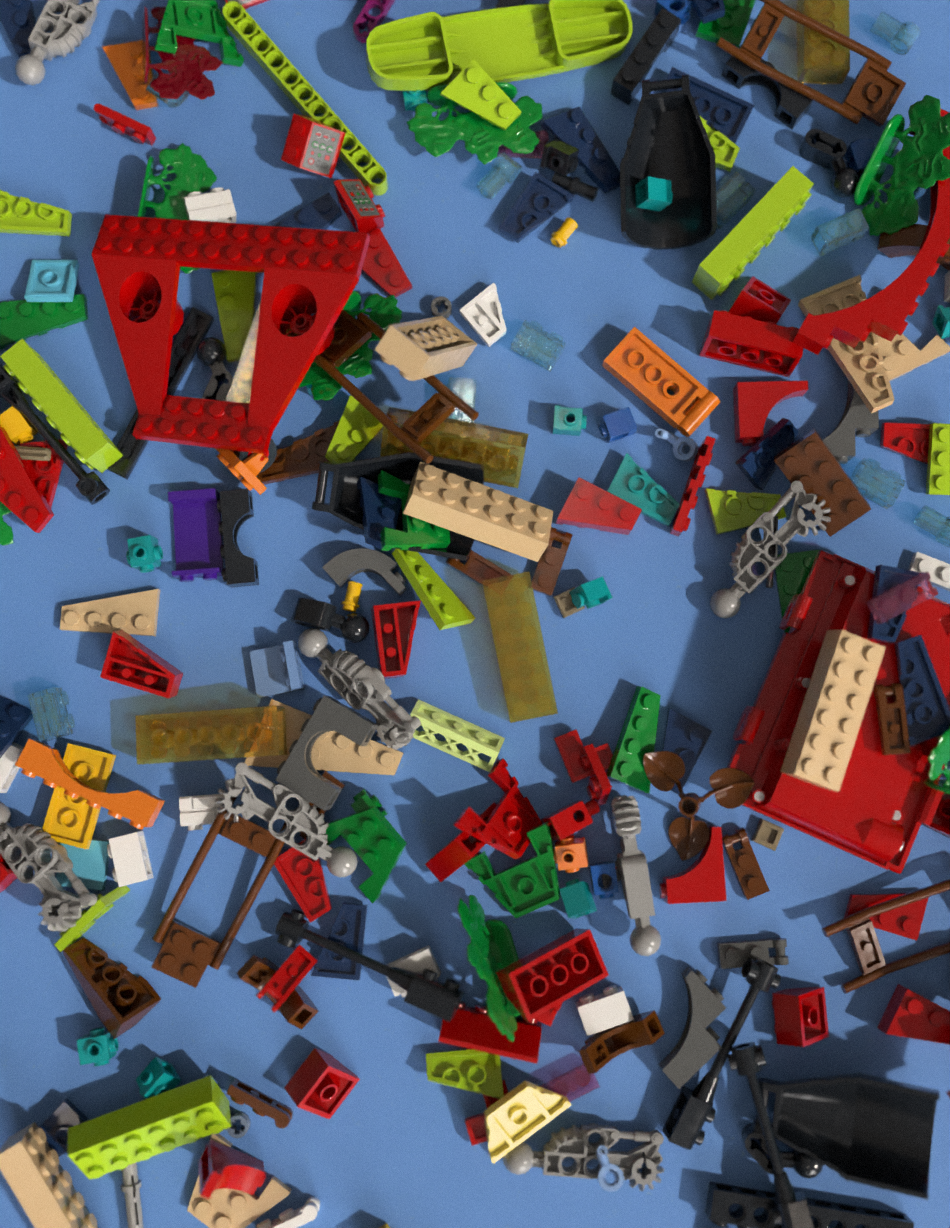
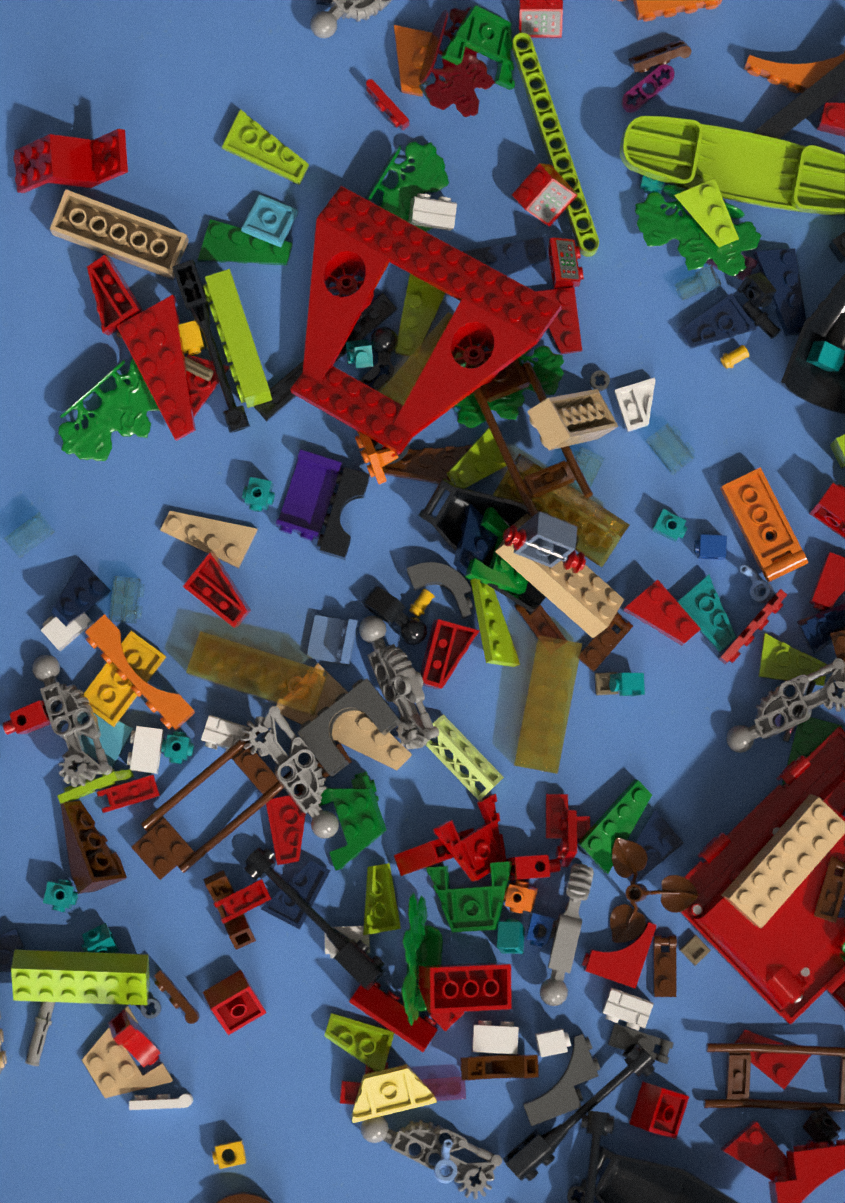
camera: 15 degrees right, 0 degrees up
(131, 909) = (130, 793): none -> red hinge
(169, 843) = (185, 751): none -> teal brick
(191, 374) = (359, 353): none -> teal brick
(431, 919) = (380, 901): none -> lime wing
(450, 479) = (546, 542): none -> sand blue brick
(665, 992) = (552, 1042): none -> white brick
(725, 923) = (627, 1008): none -> white brick

